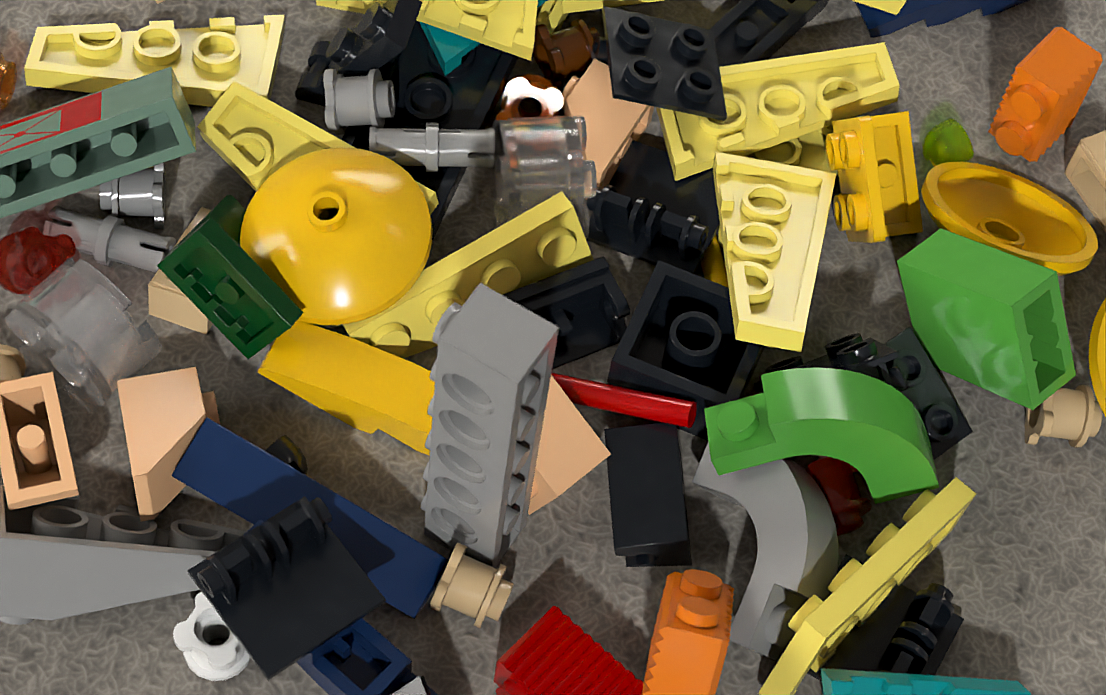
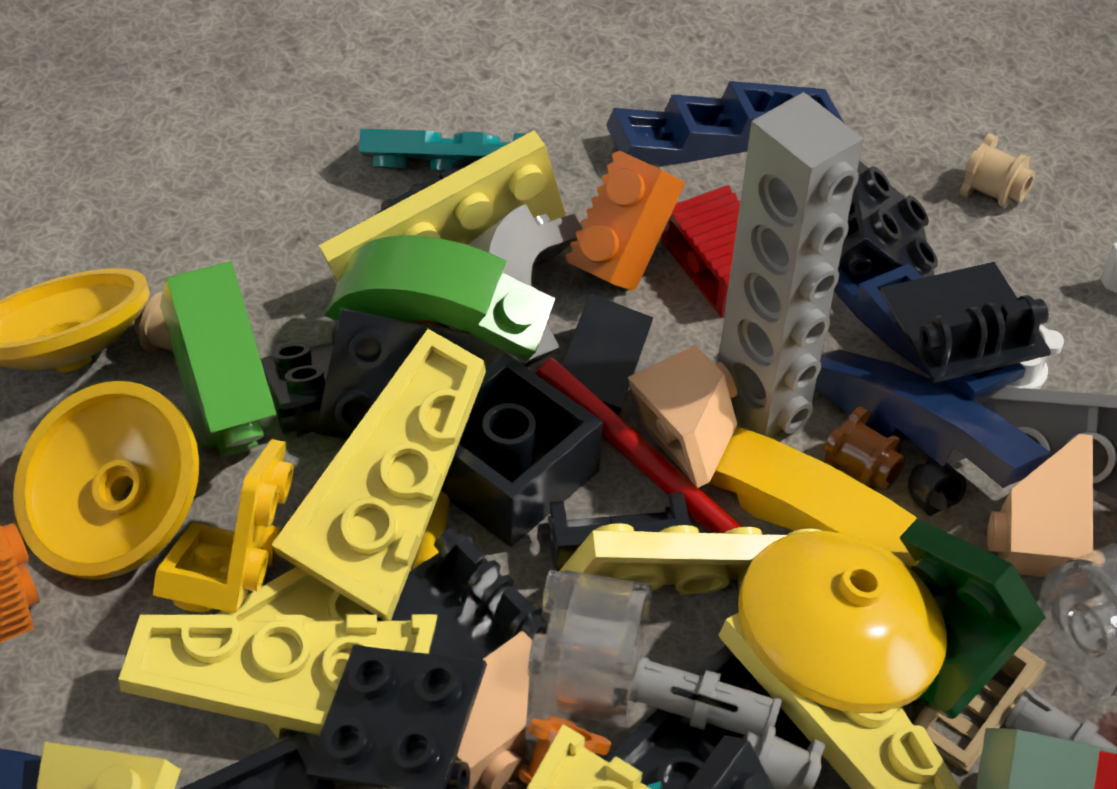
camera: 155 degrees left, 10 degrees down
(356, 468) = (864, 452): none -> reddish brown brick
(947, 143) = (96, 607): clear neon green hinge -> none

